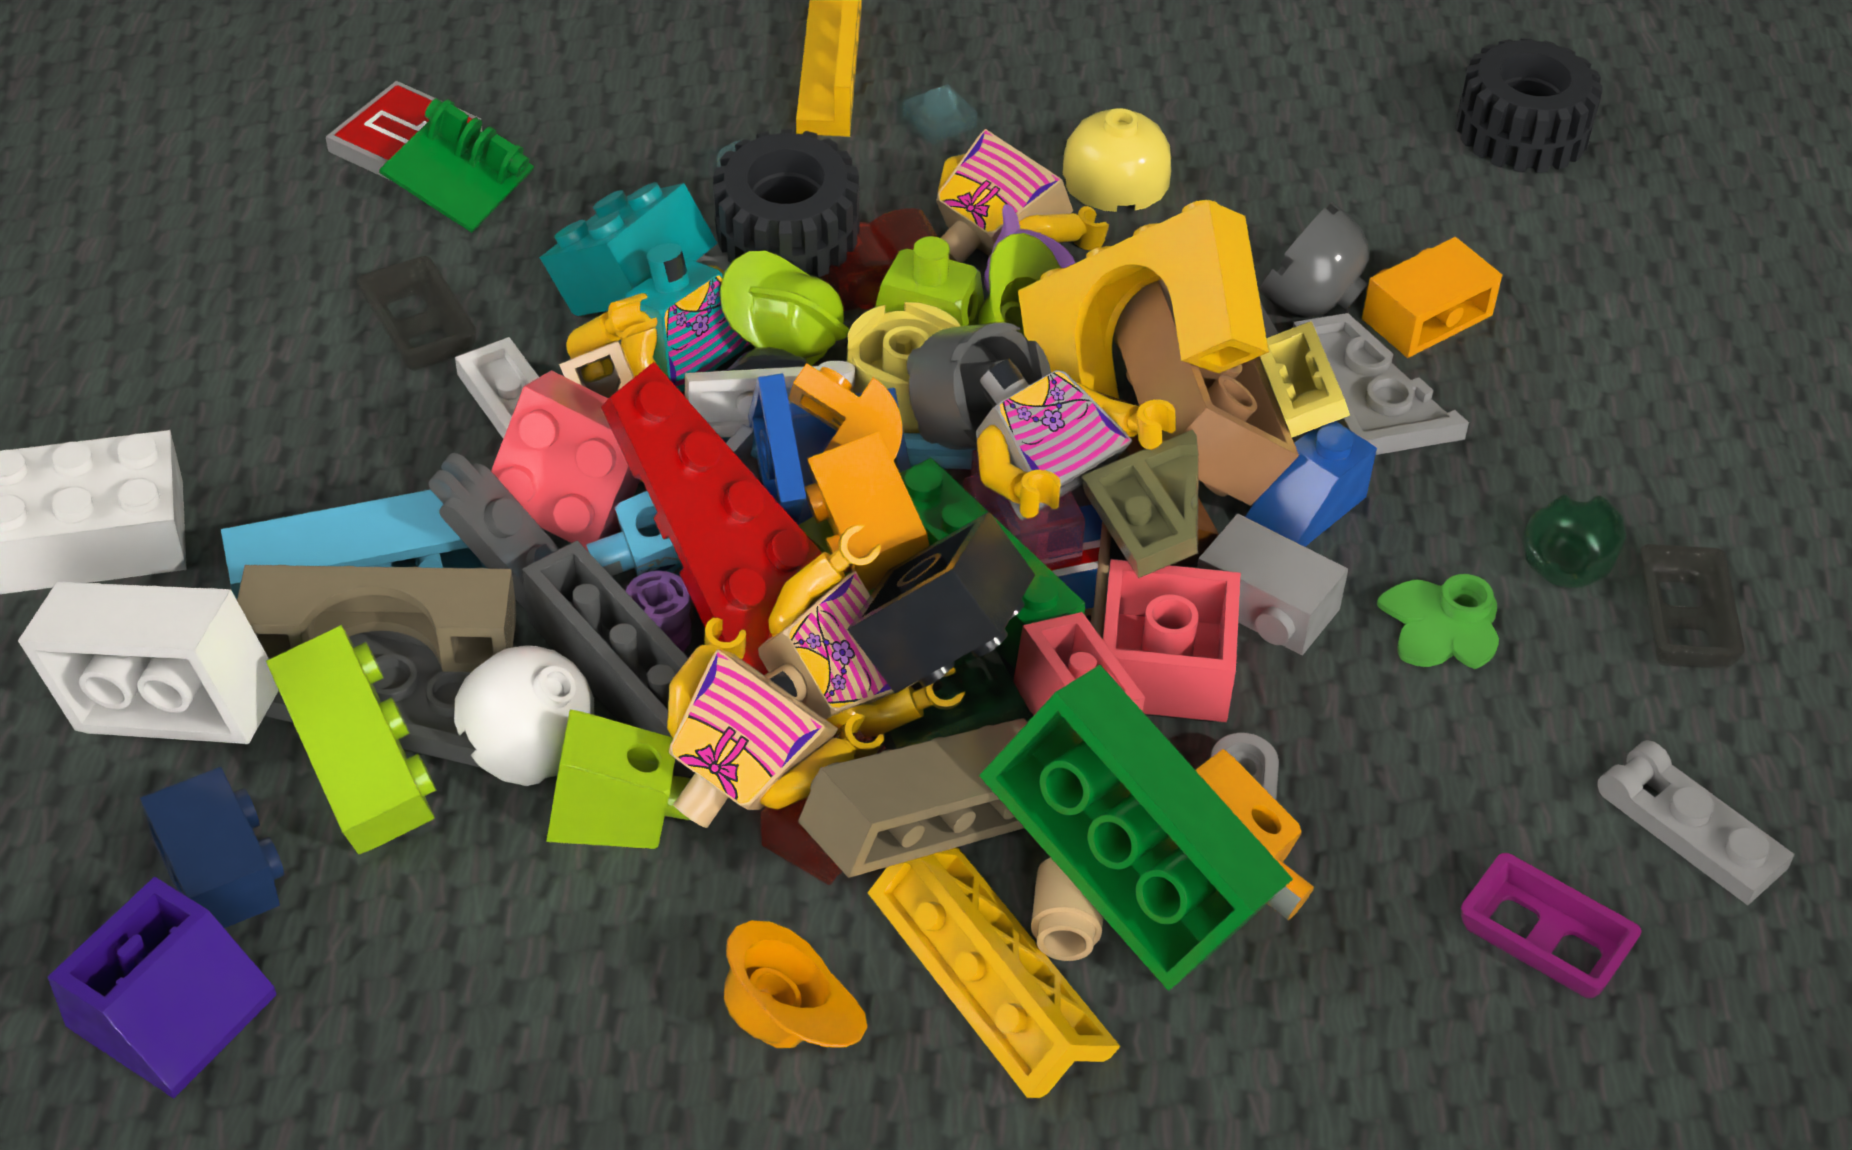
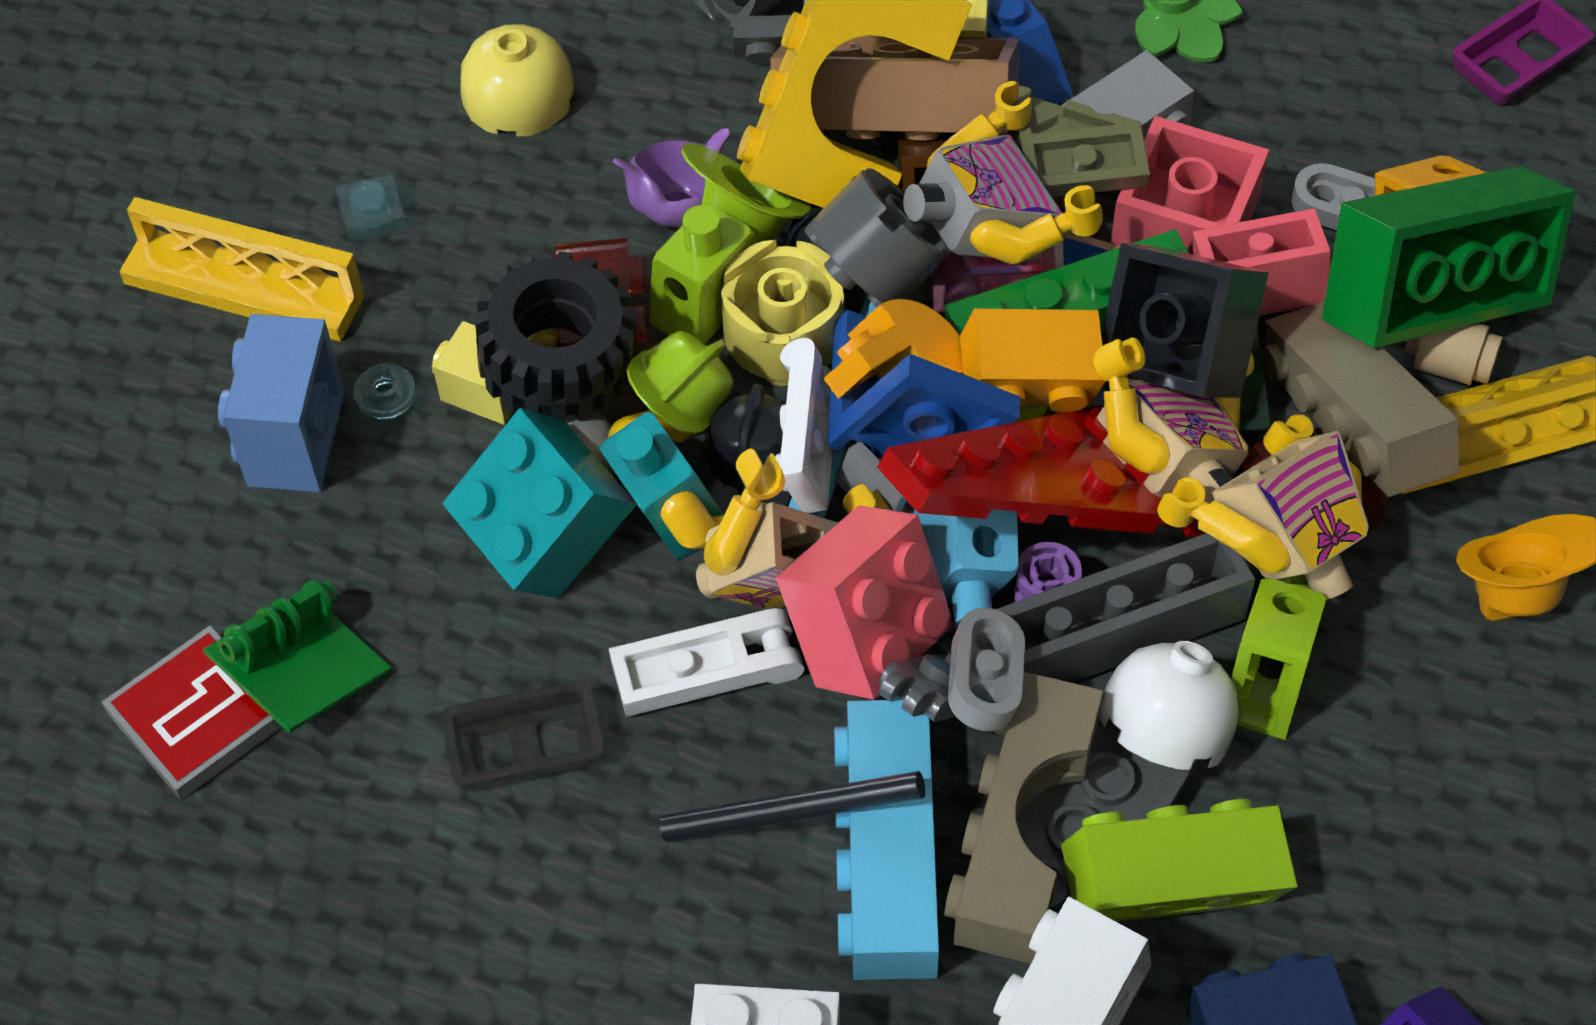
camera: 70 degrees left, 10 degrees up
(364, 471) = (792, 806): none -> black bar
(495, 533) = (986, 669): none -> light grey plate
(687, 88) = (283, 402): none -> medium blue brick
(997, 174) = (555, 179): torso -> none

